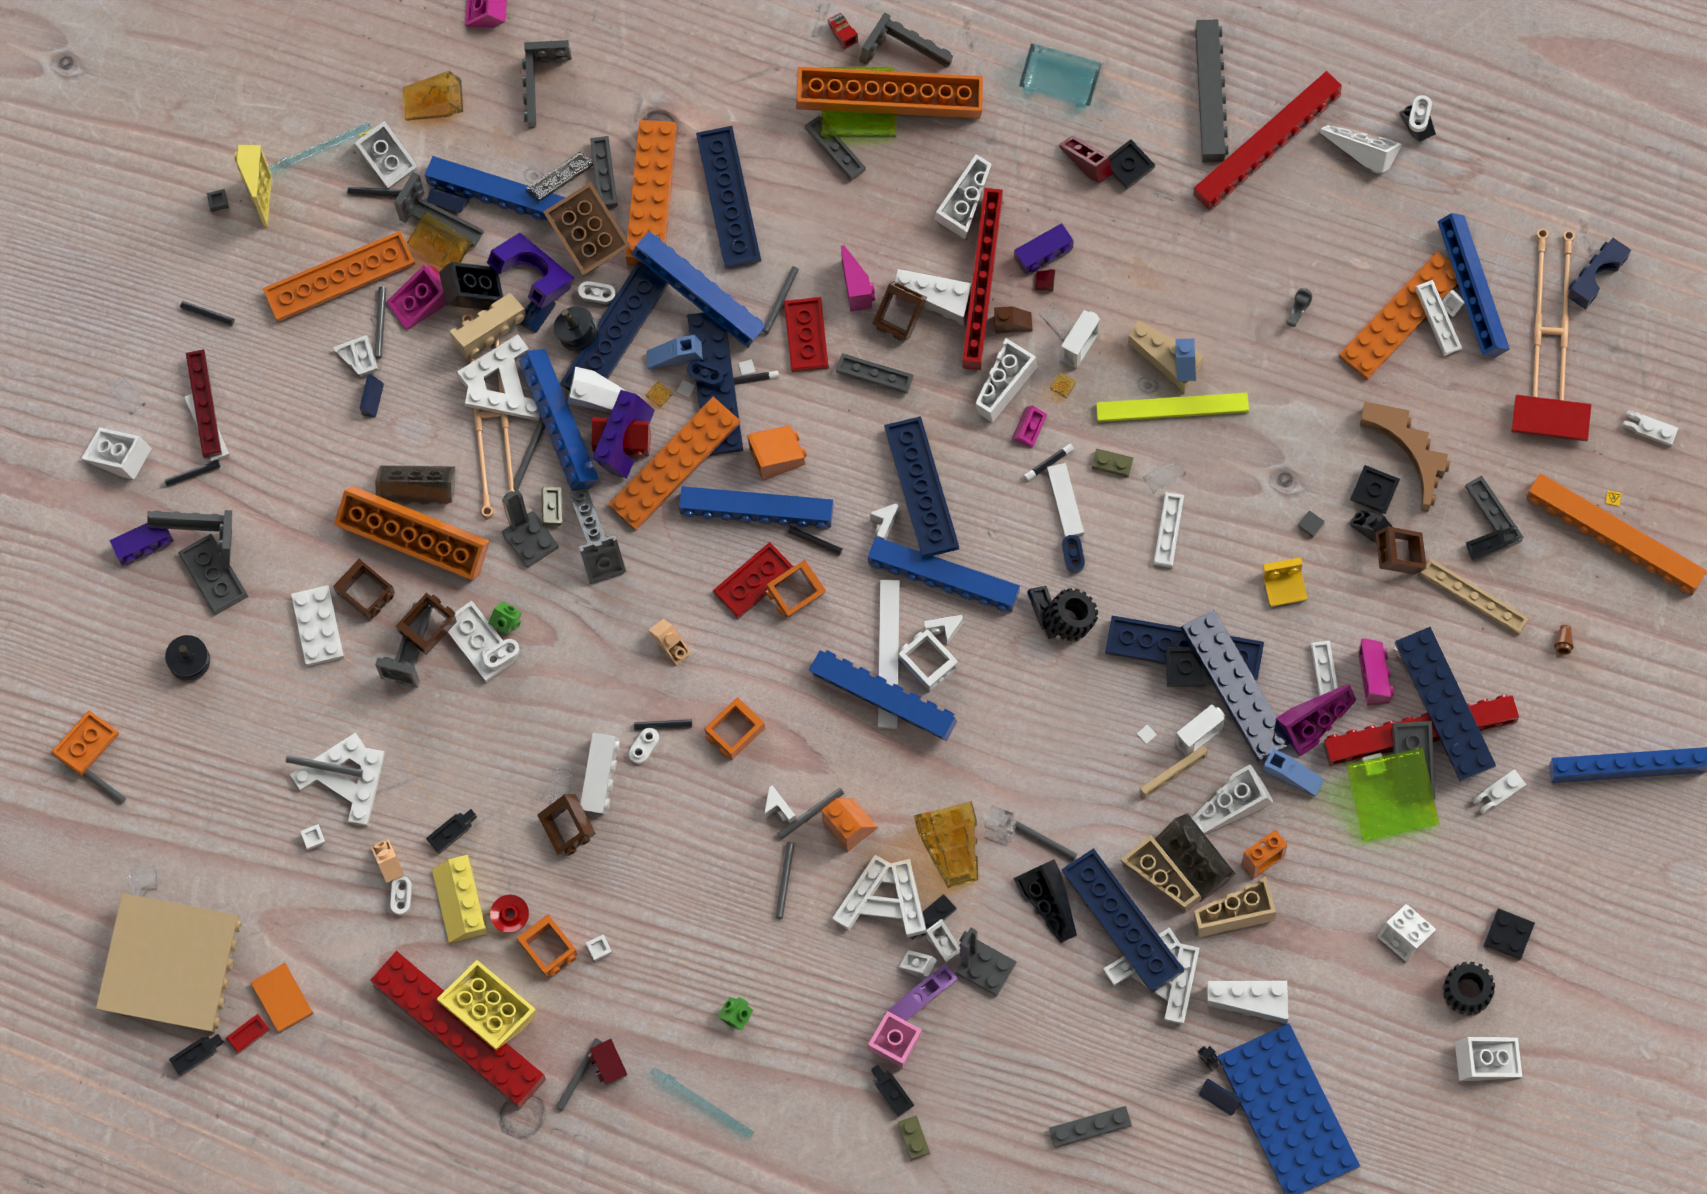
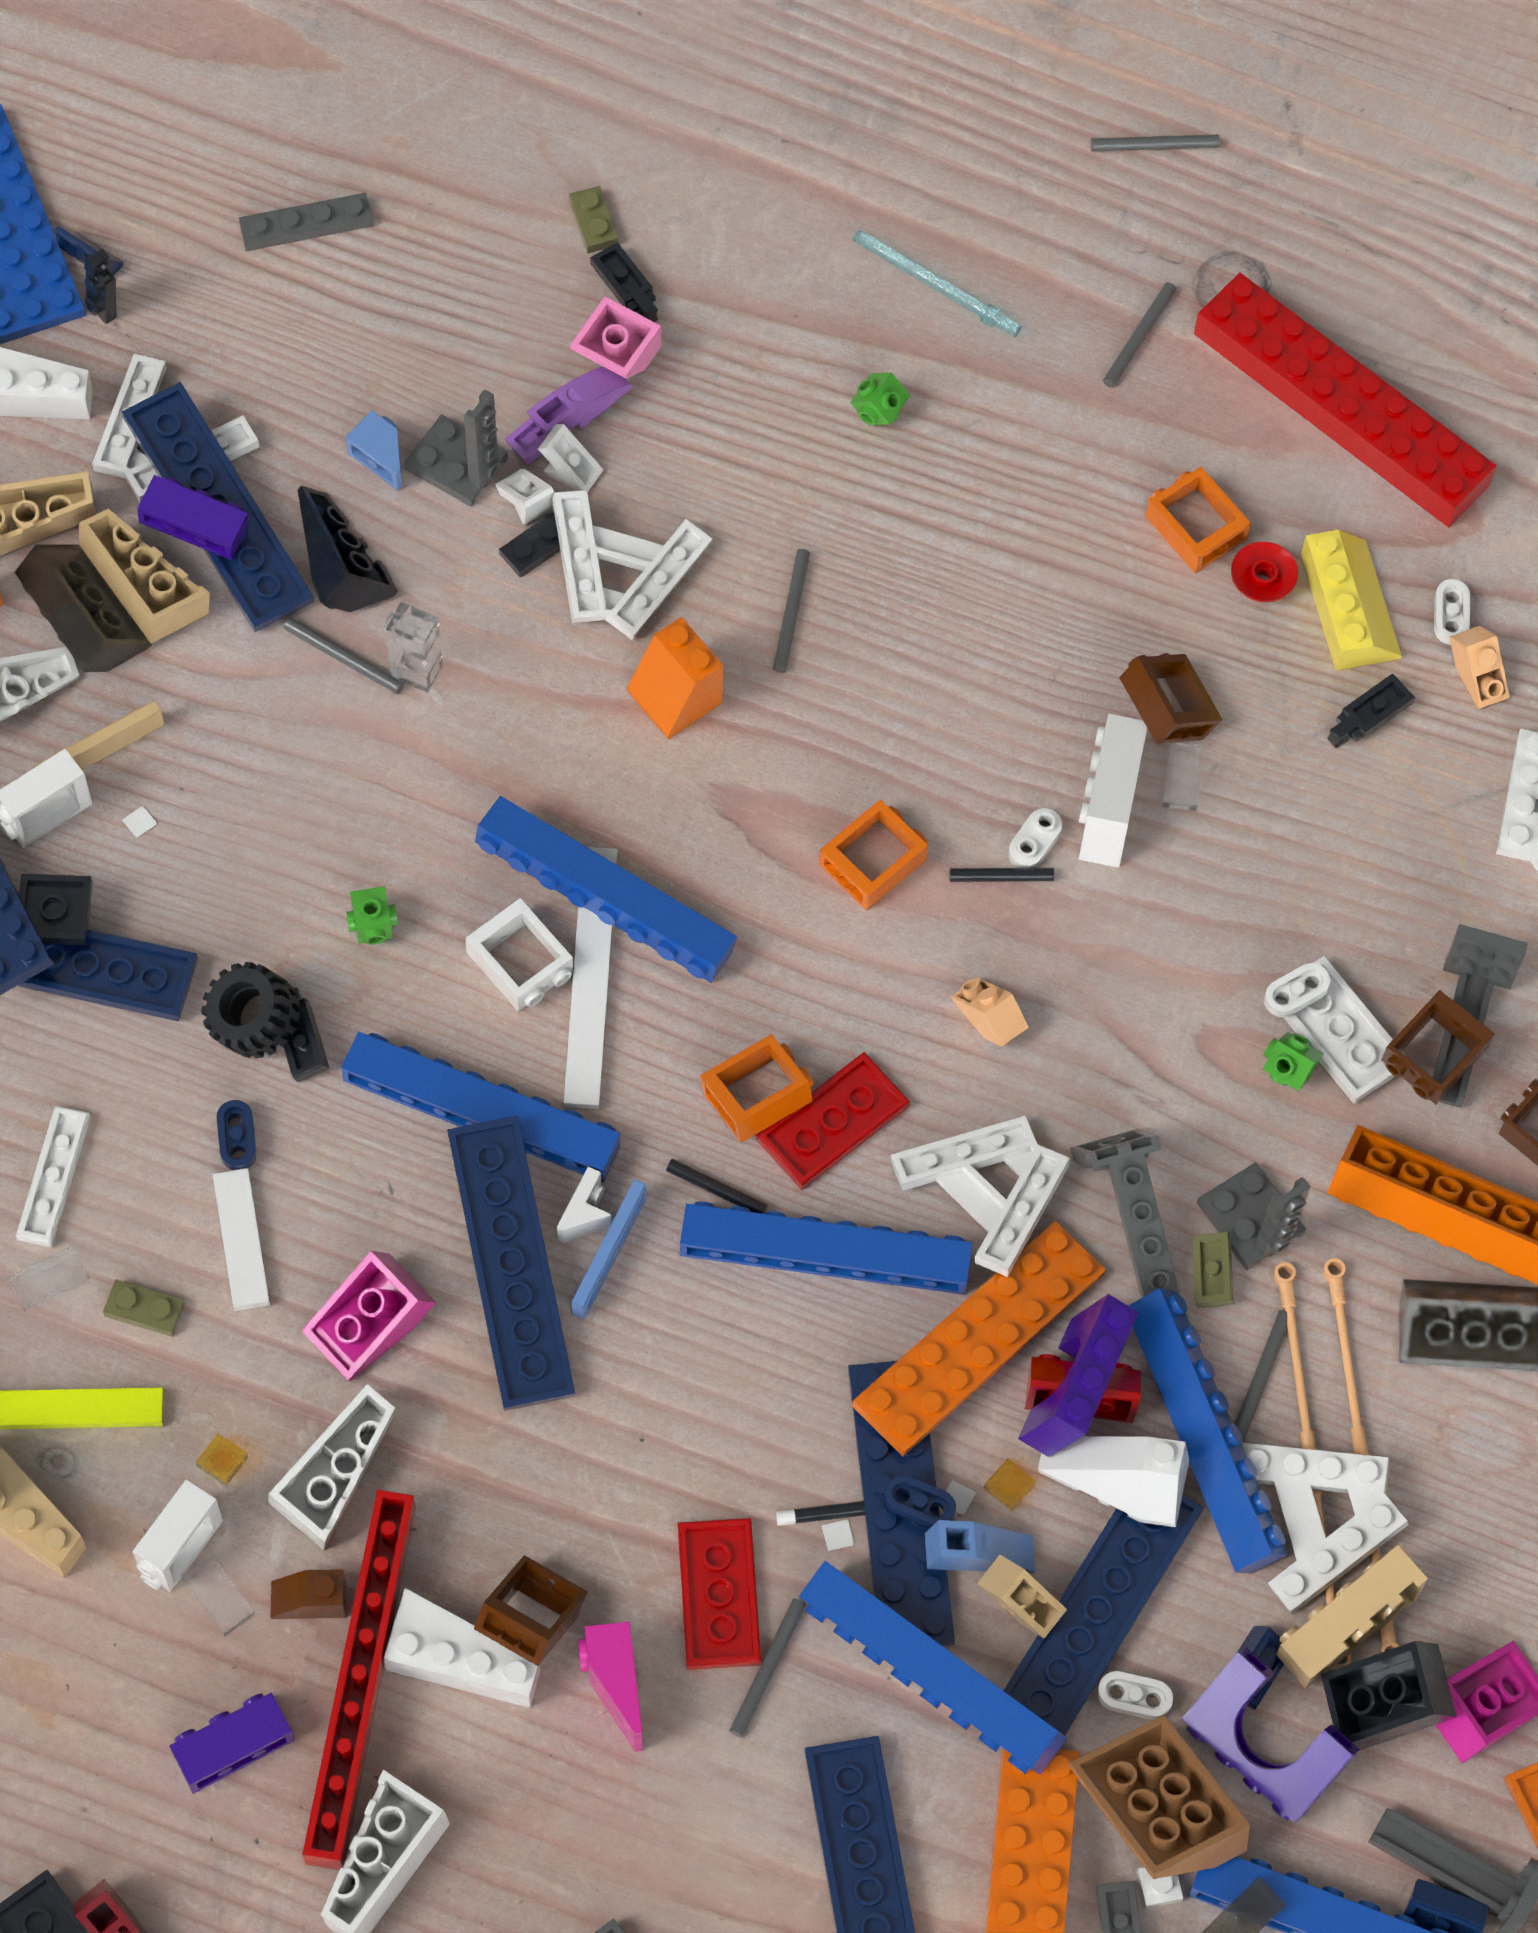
camera: 175 degrees right, 5 degrees down
(439, 241) = (1457, 1809): clear yellow slope -> none
(487, 1005) = (1298, 414): light yellow slope -> none
(576, 328) = (1175, 1610): black wheel -> none
(599, 947) = (1110, 515): white plate -> none
(607, 1061) = (1092, 338): dark red brick -> none
(653, 327) = (1021, 1596): none -> tan brick
(689, 556) = (954, 1166): none -> white plate
(775, 803) = (799, 725): white slope -> none
(776, 451) = (785, 1346): orange slope -> none
(810, 813) = (742, 715): dark grey bar -> none
(870, 501) = (609, 1249): none -> medium blue tile
(874, 373) = (588, 1501): dark grey plate -> none
(948, 624) = (476, 1015): white slope -> none
(951, 842) = (506, 642): clear yellow wedge -> none
(993, 461) = (368, 1314): none -> dark pink slope
(1011, 675) = (371, 916): none -> bright green brick
(1029, 426) = (296, 1387): dark pink slope -> none
(1032, 968) = (377, 447): none -> medium blue slope
(1045, 280) = (234, 1680): dark red slope -> none
(1048, 462) = (264, 1315): black bar -> none
(1134, 902) = (193, 516): none -> dark purple brick

